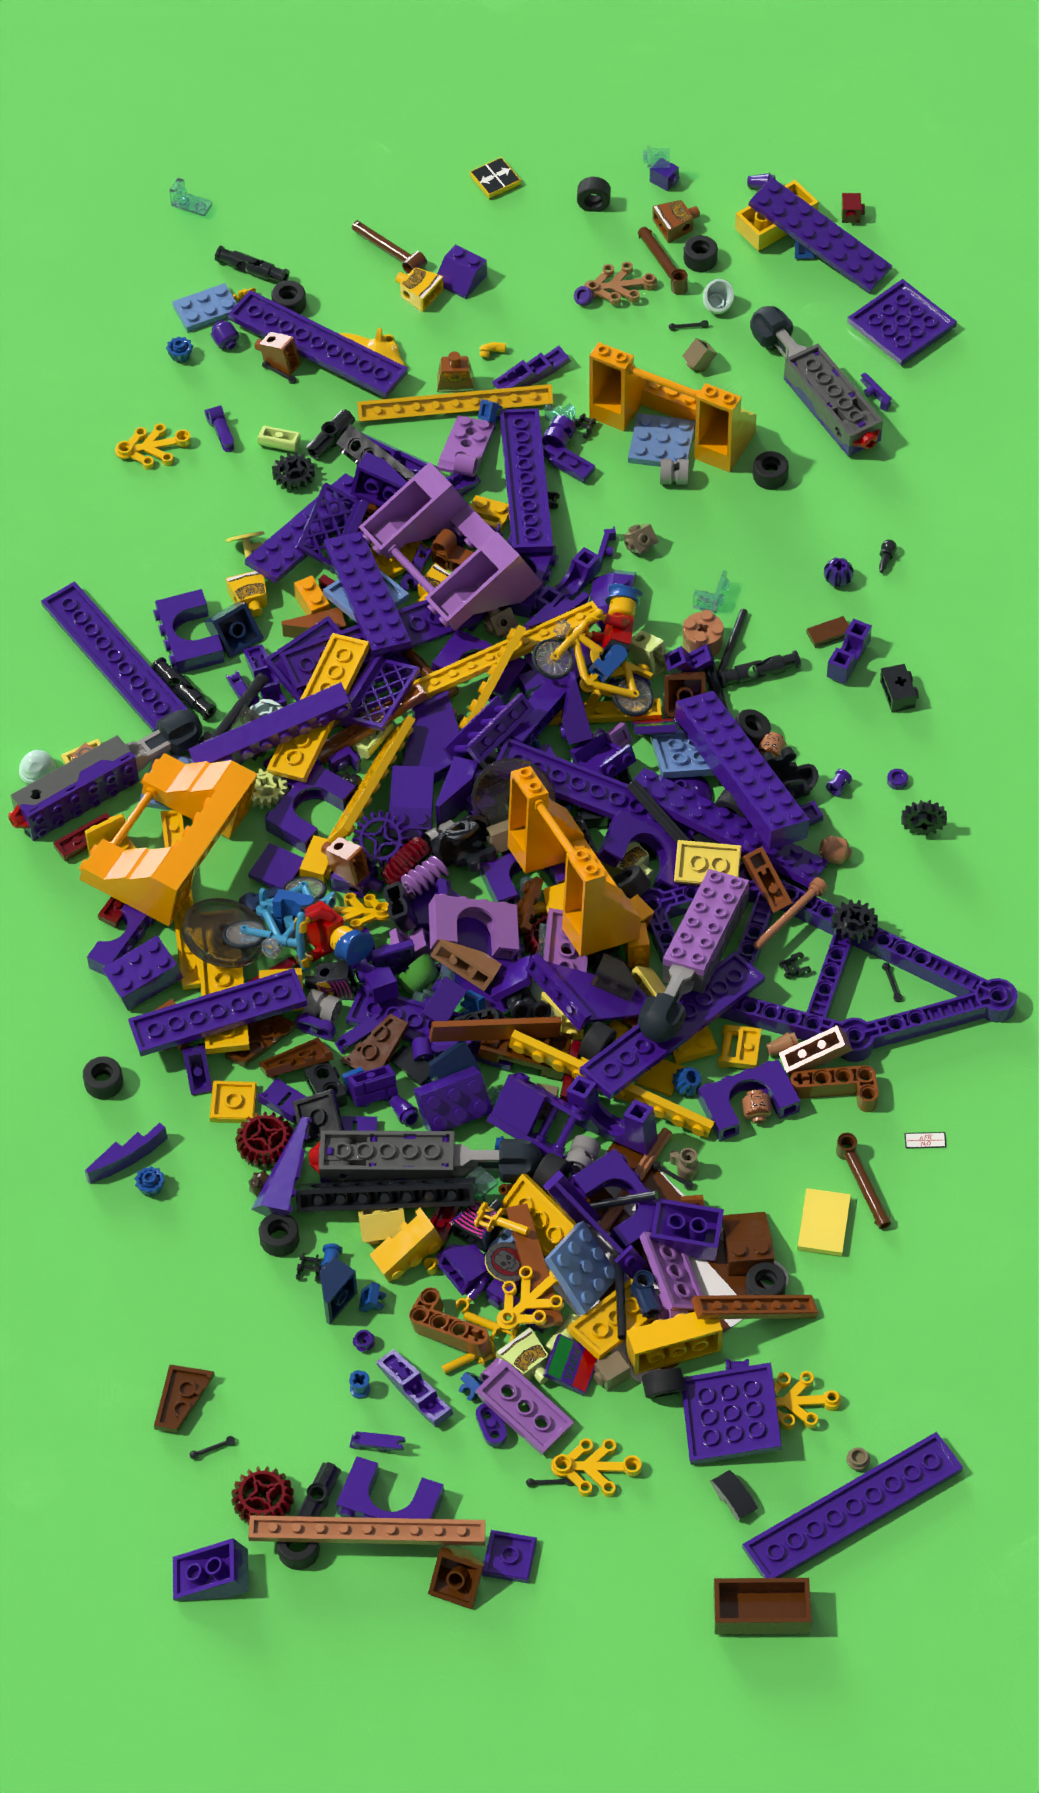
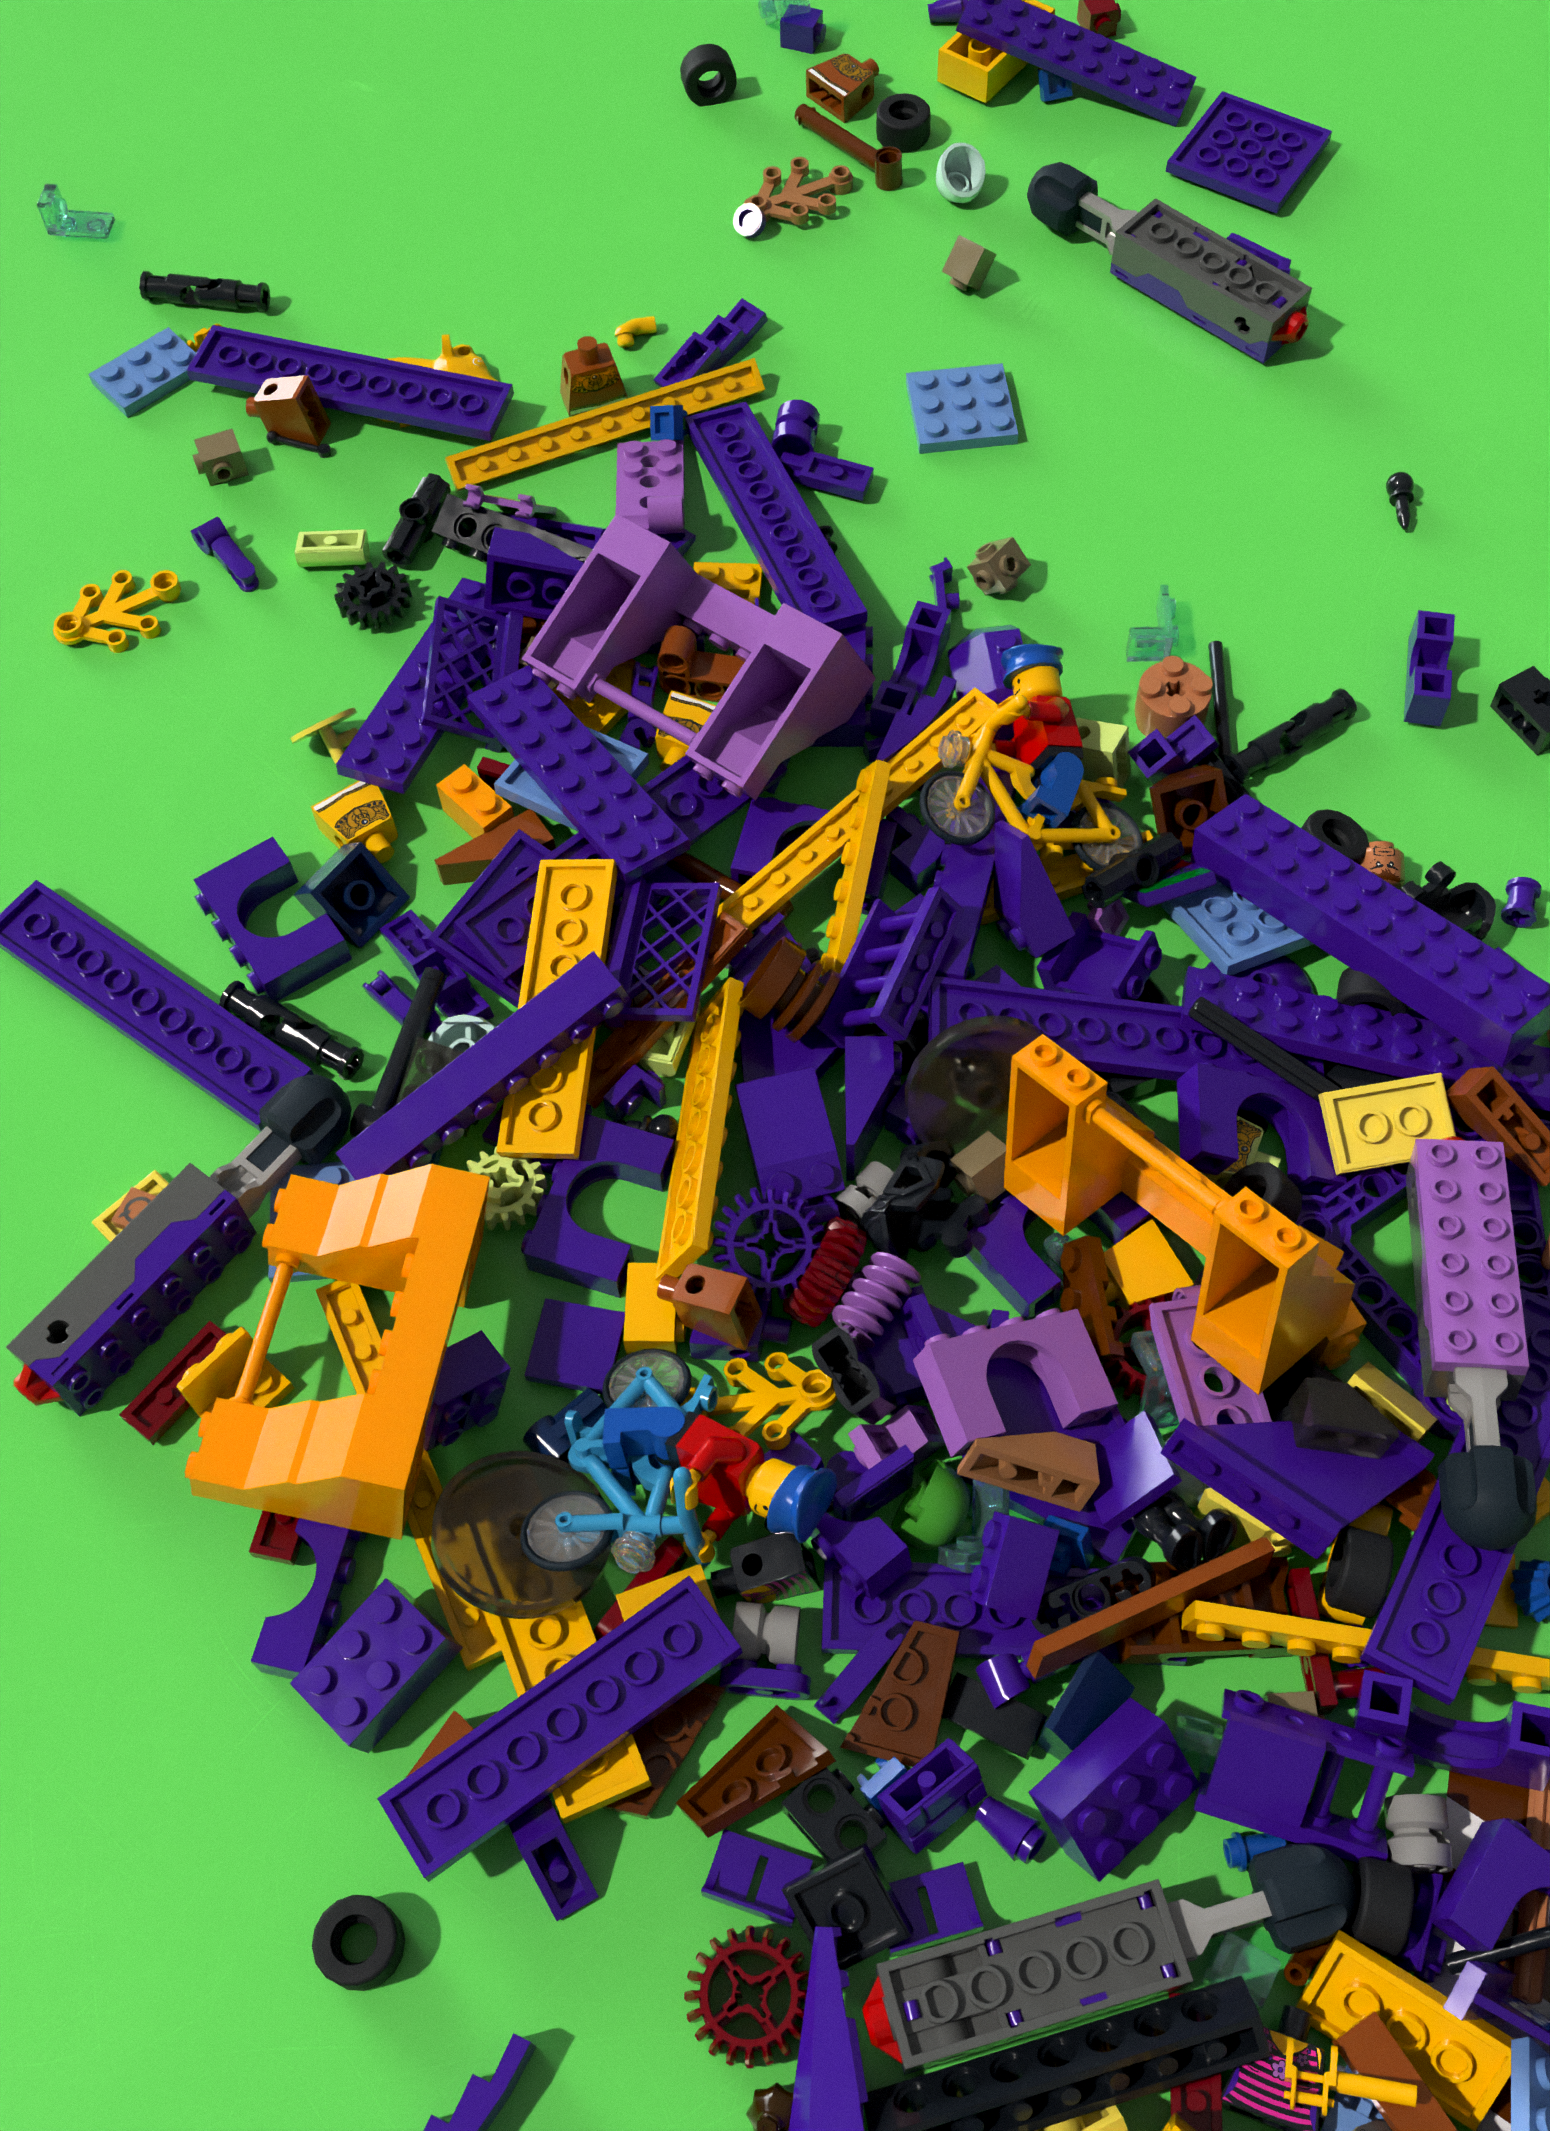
camera: 15 degrees left, 5 degrees up
(36, 765) = (49, 1260): light aqua hat -> none
(179, 349) = (121, 444): blue piece -> none
(217, 870) = (466, 1390): none -> dark purple slope
(224, 335) = (191, 405): dark purple head -> none
(232, 370) = (219, 457): none -> dark tan brick
(233, 1101) = (650, 1913): yellow tile -> none
(292, 290) = (281, 319): black tyre -> none
(390, 440) = (527, 504): none -> medium lavender flag
(409, 261) = (460, 232): reddish brown piece -> none
(420, 287) = (487, 264): yellow torso -> none
(435, 727) = (789, 989): none -> reddish brown wheel
(462, 271) = (544, 227): dark purple slope -> none
(495, 178) = (547, 89): tile -> none
(500, 621) = (820, 765): dark tan brick -> none
(568, 411) = (770, 402): clear light blue panel -> none
(578, 422) = (837, 413): black piece -> none
(621, 388) = (877, 332): light orange brick -> none
(627, 715) = (1133, 870): none -> black piece
(674, 471) = (1007, 447): light grey wheel -> none
(704, 324) = (950, 221): black hinge -> none
(770, 479) = (1156, 410): black tyre -> none
(827, 631) = (1370, 645): reddish brown tile -> none
(838, 572) = (1343, 543): dark purple piece -> none

